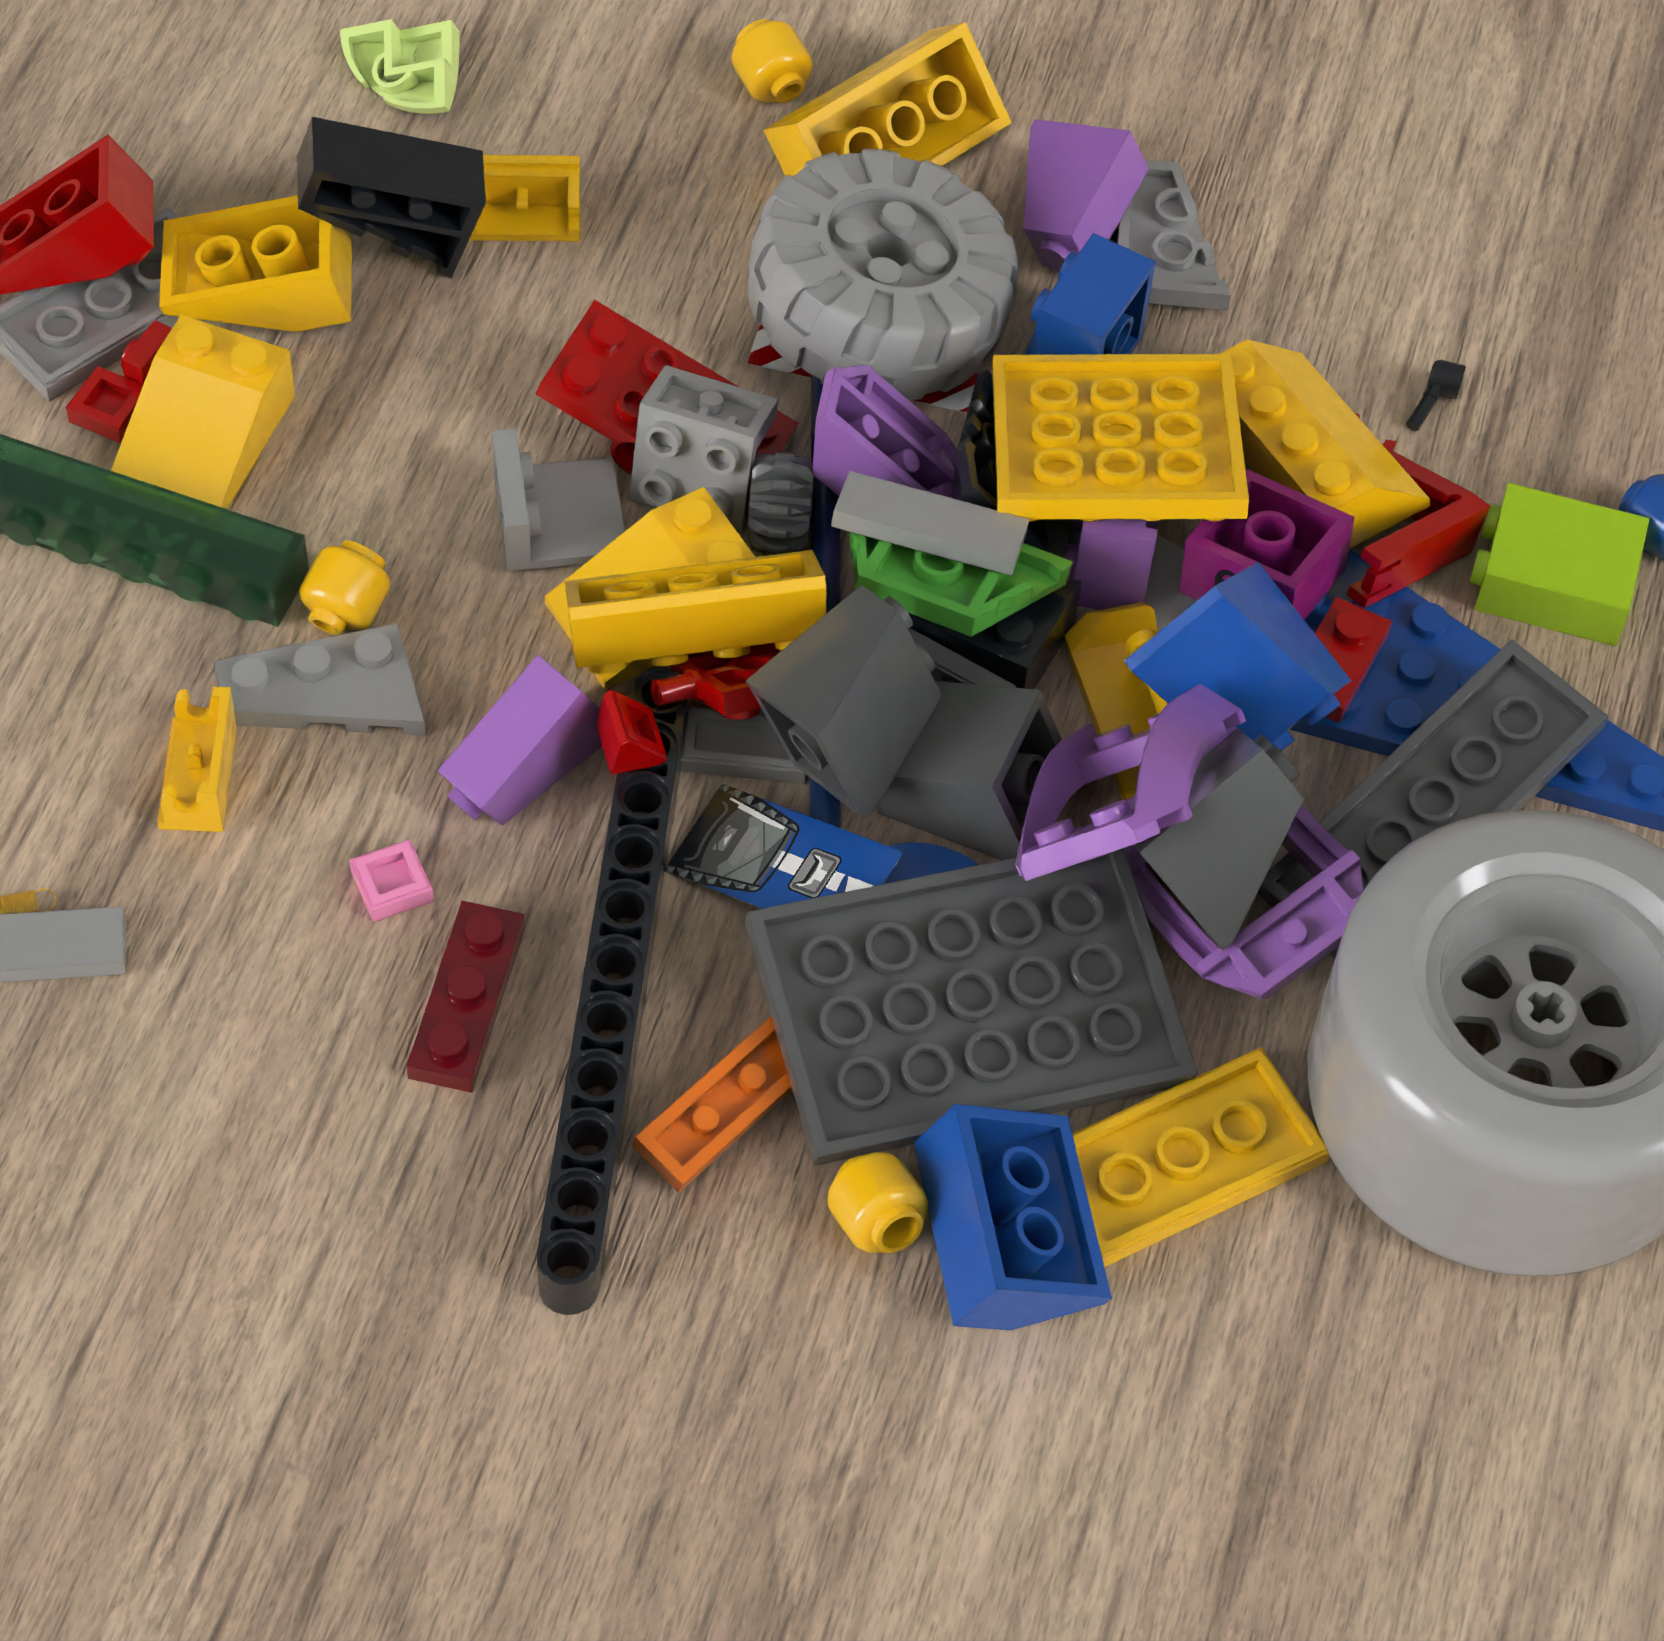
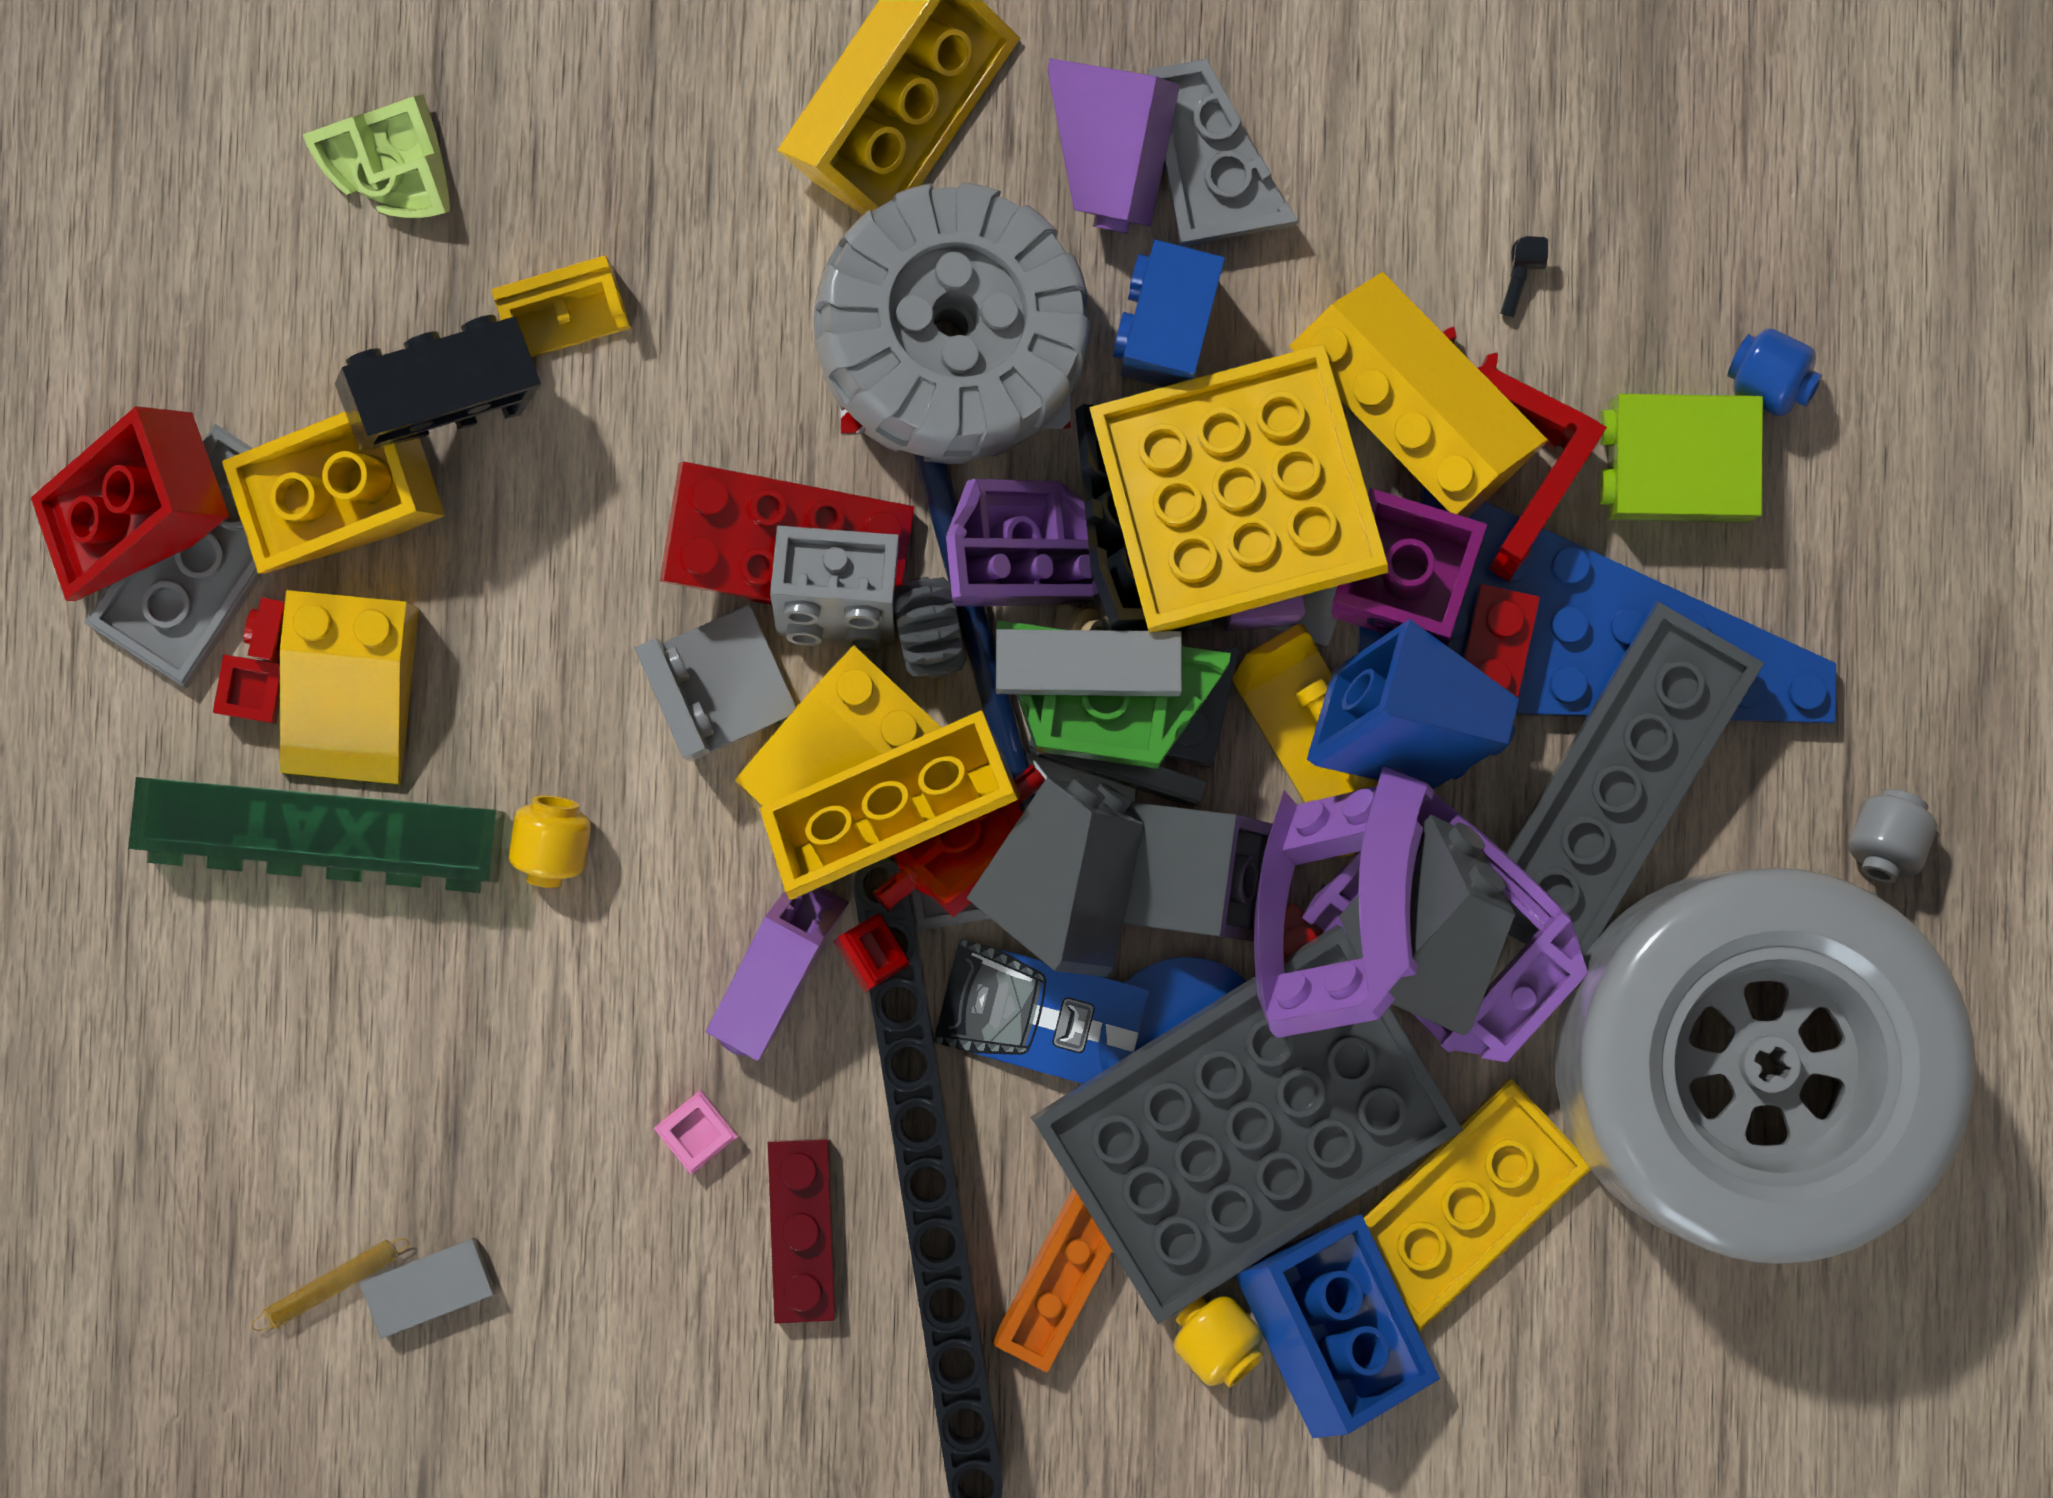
camera: 10 degrees left, 30 degrees up
(198, 763) = (483, 1069): yellow hinge -> none
(333, 680) = (567, 940): light grey wing -> none
(770, 60) = (758, 48): yellow head -> none

